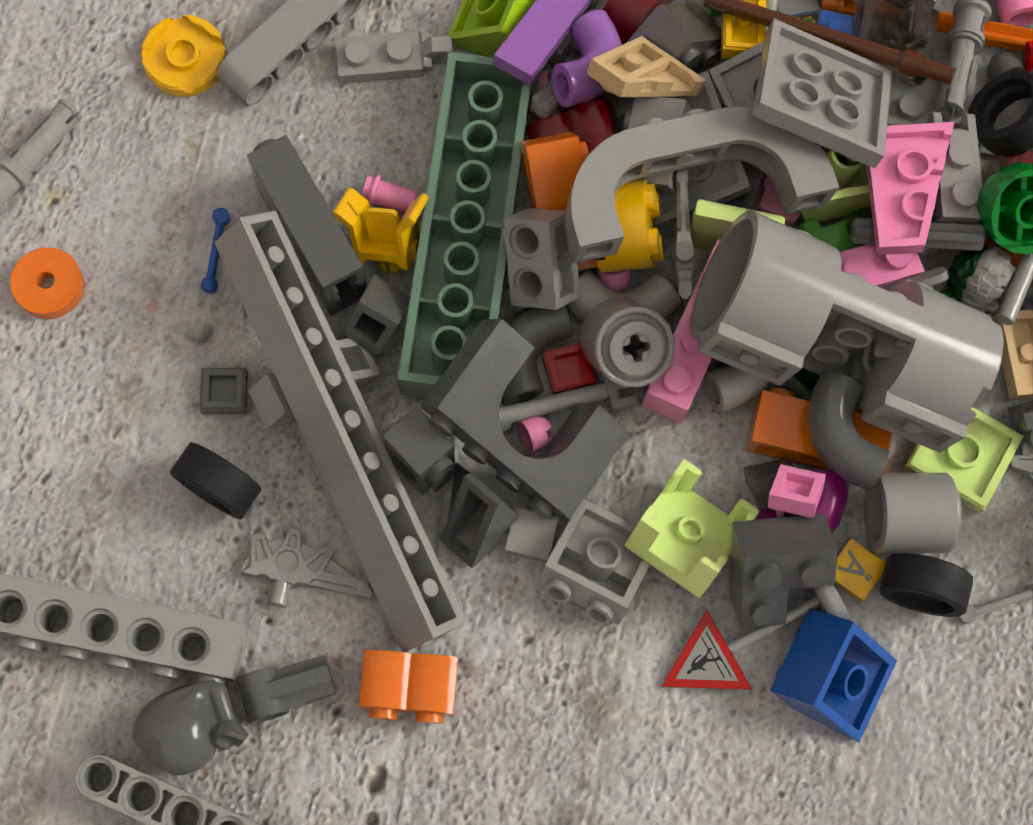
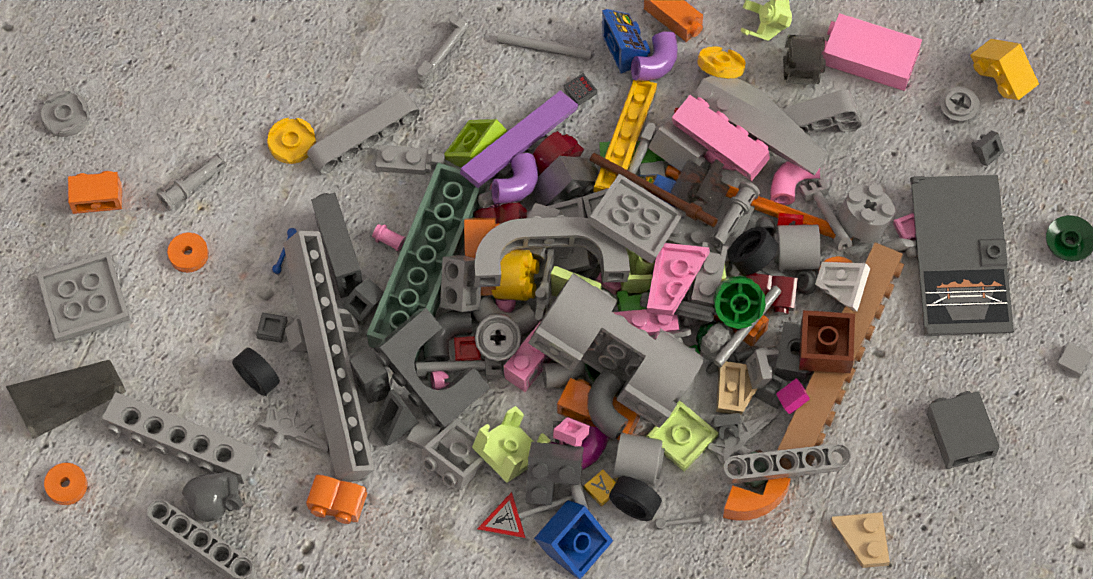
camera: 20 degrees right, 10 degrees down
(274, 691) = (261, 489): dark grey piece -> none
(378, 231) = (376, 255): yellow piece -> none
(644, 71) = (541, 190): tan wing -> none

